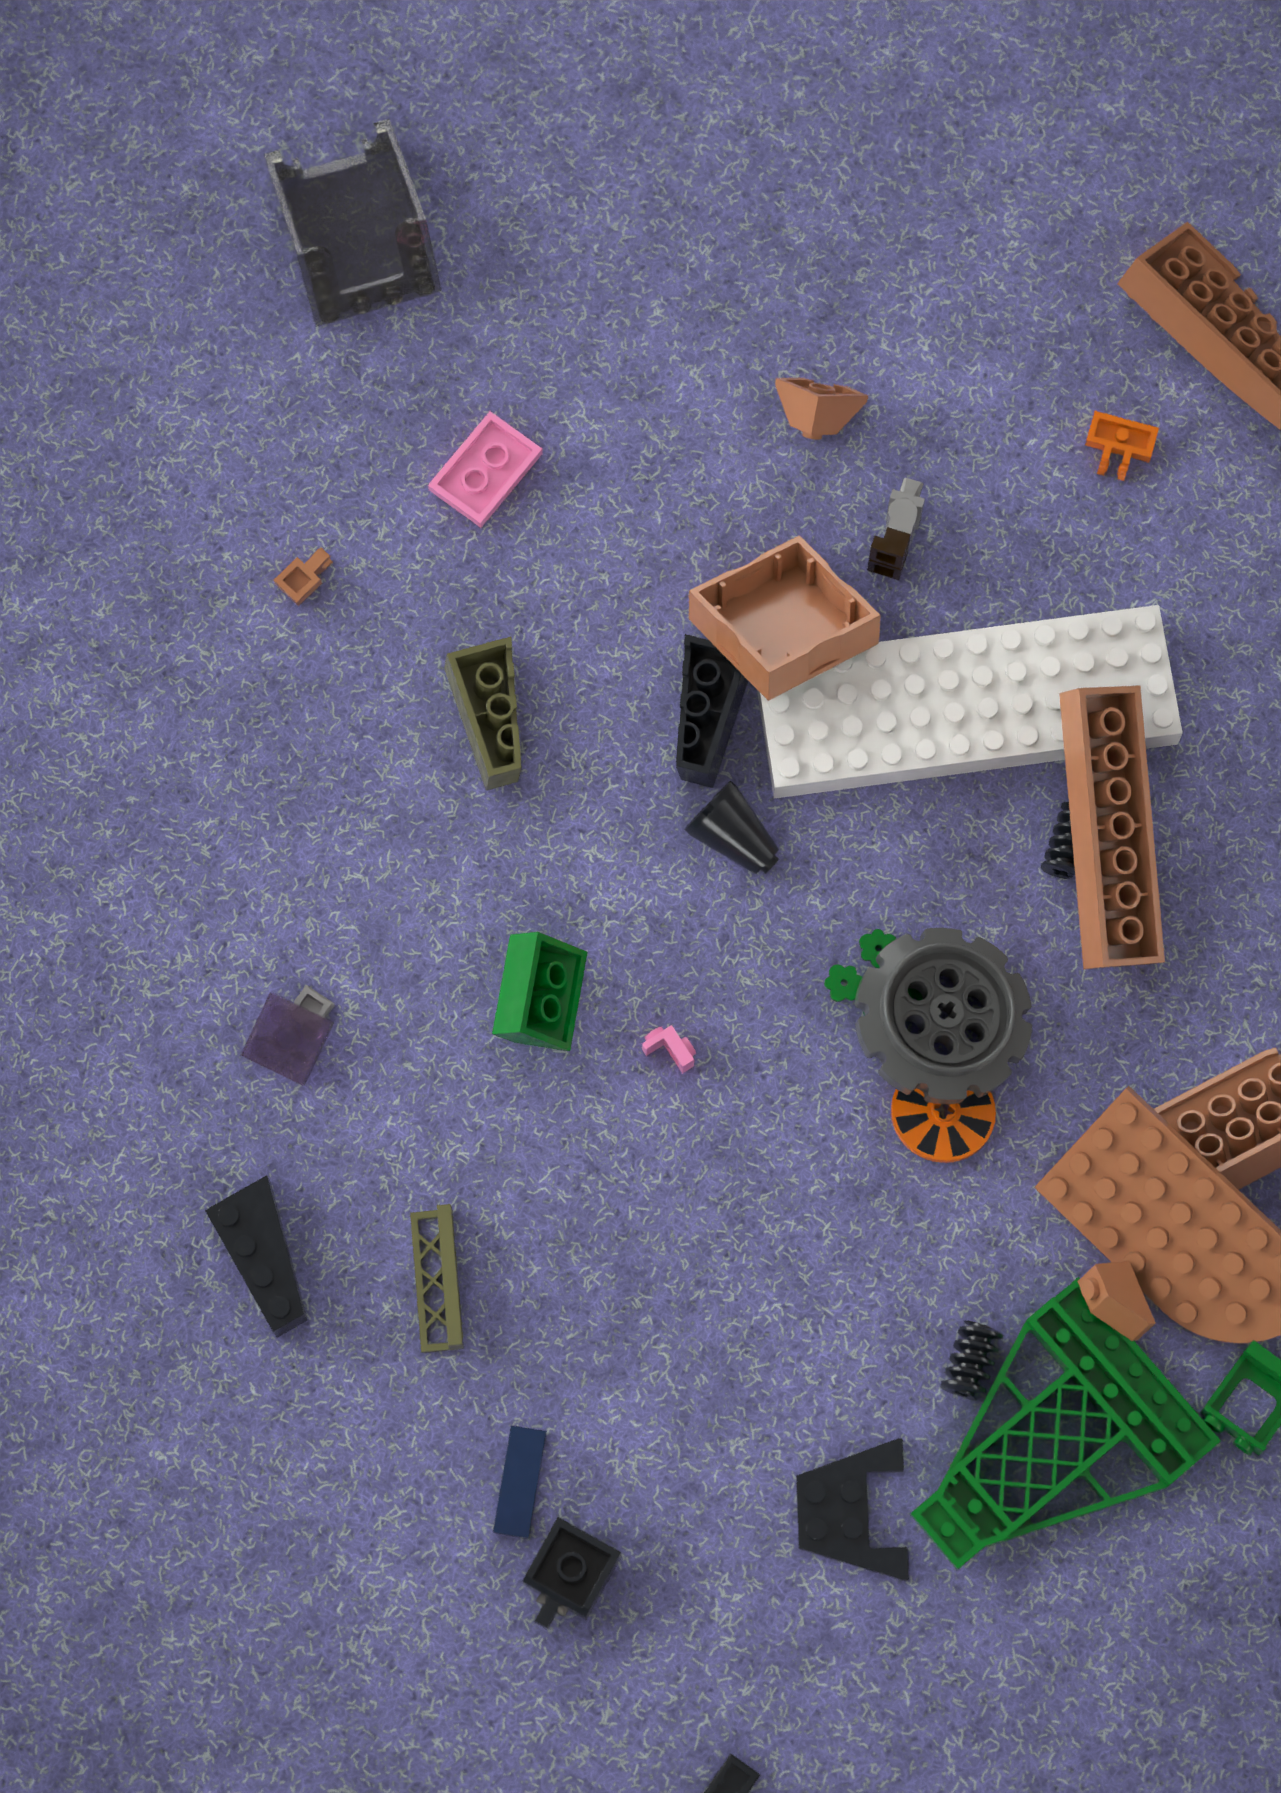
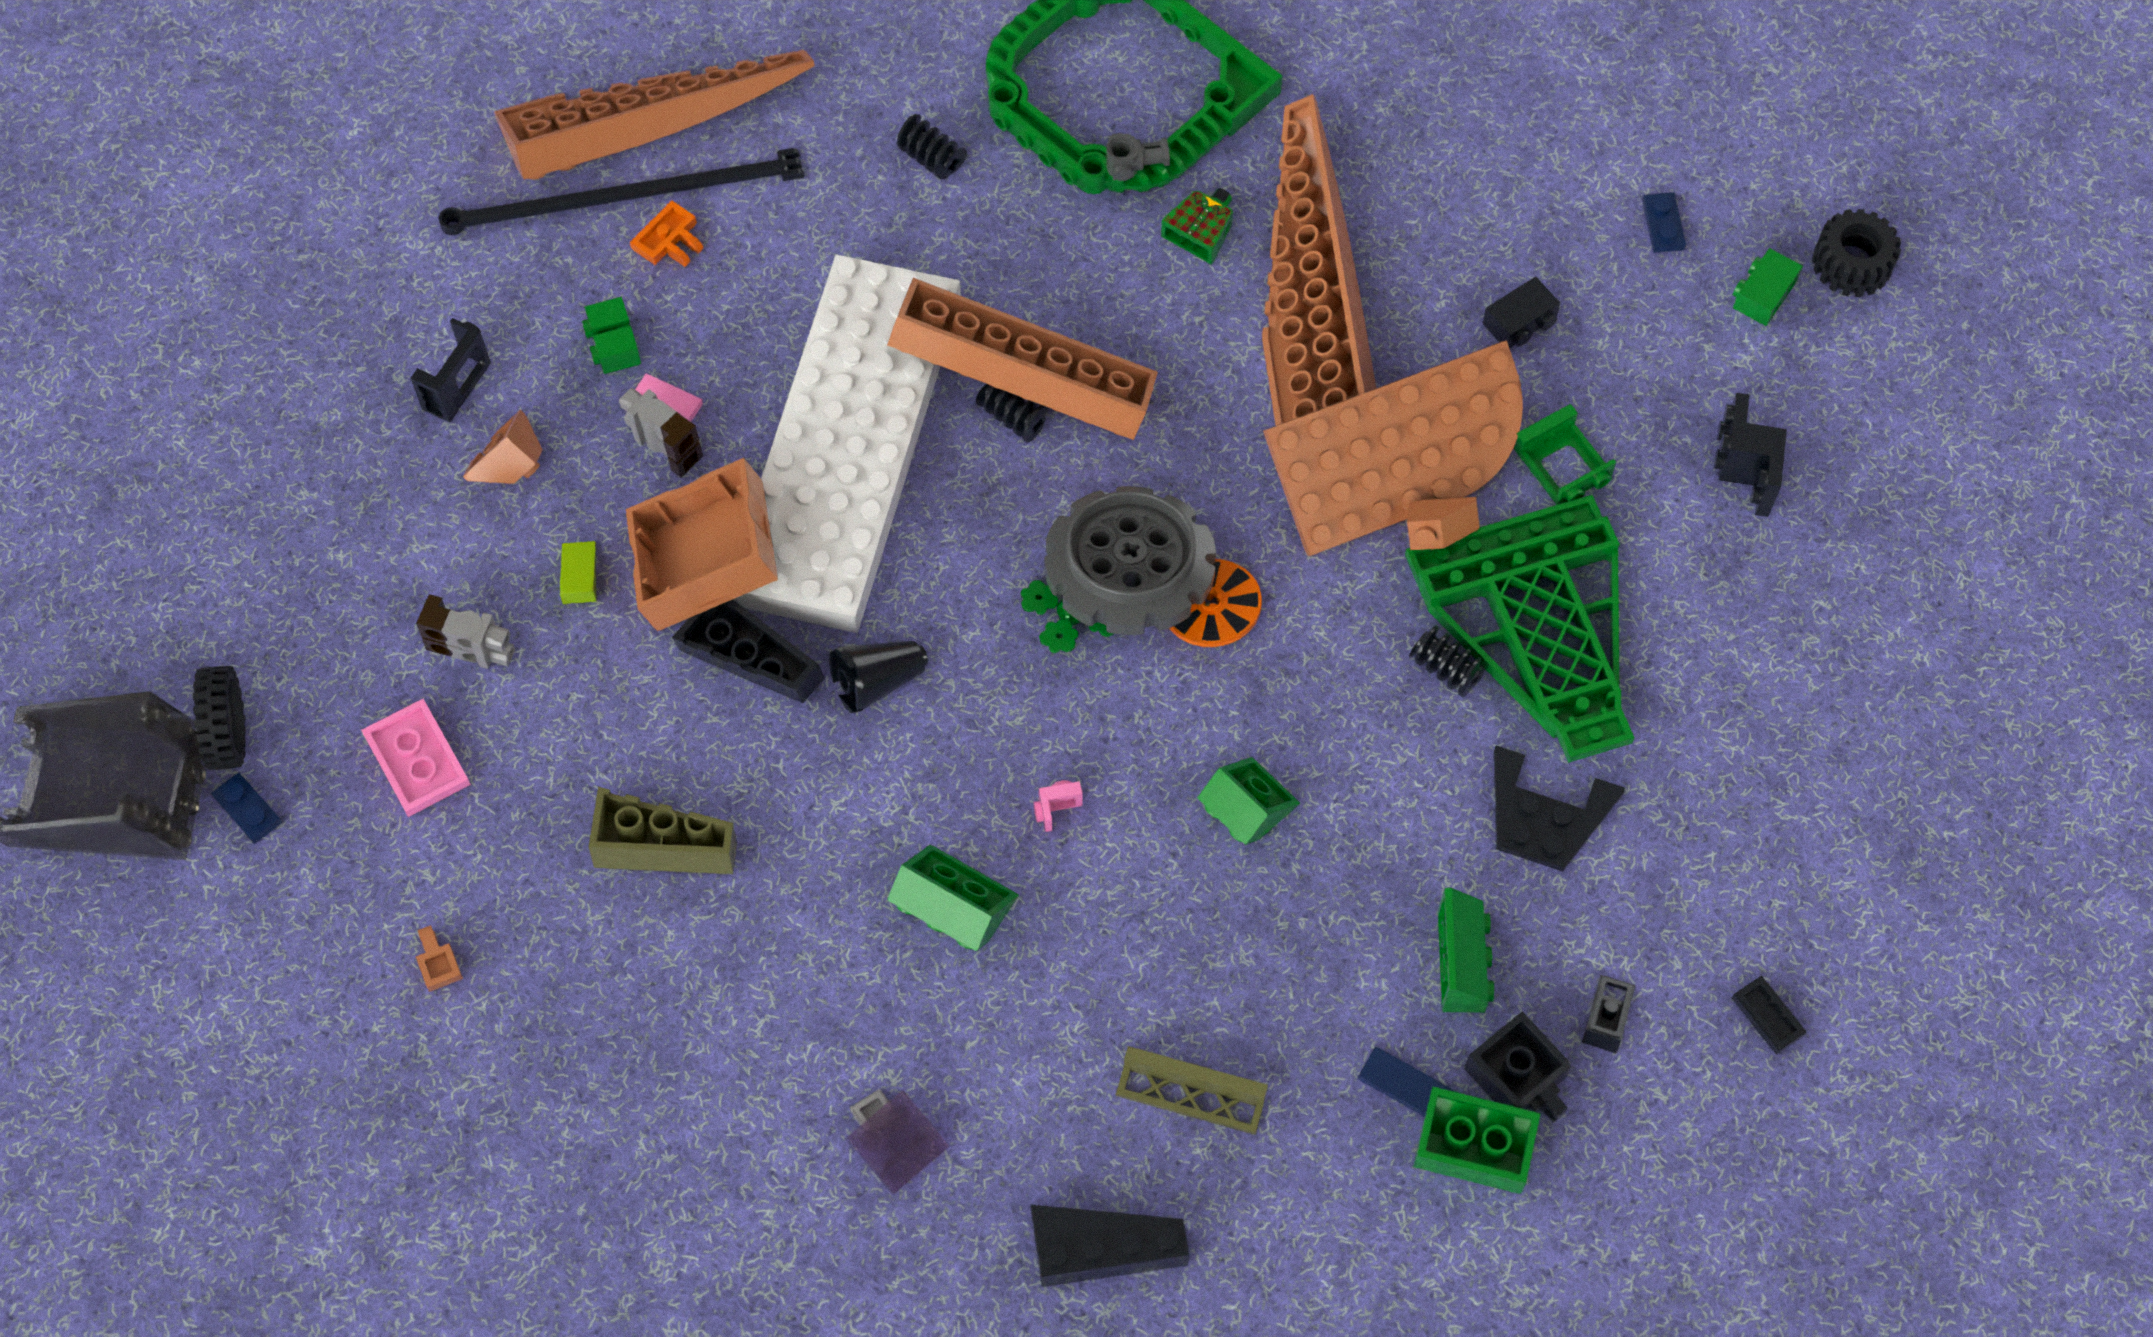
camera: 70 degrees left, 10 degrees down
(382, 352) = (246, 808): none -> dark blue plate
(441, 287) = (219, 717): none -> black tyre
(483, 1554) = (1477, 1140): none -> green slope
(614, 465) = (464, 634): none -> light grey hips
(665, 1640) = (1608, 1016): none -> black slope
(666, 1480) = (1464, 953): none -> green slope
(728, 523) = (578, 572): none -> lime slope
(746, 1223) = (1247, 800): none -> green slope
(853, 317) = (440, 393): none -> black window
(940, 521) = (677, 399): none -> bright pink tile
(985, 441) = (612, 335): none -> green piece
(1156, 387) = (787, 165): none -> black hinge

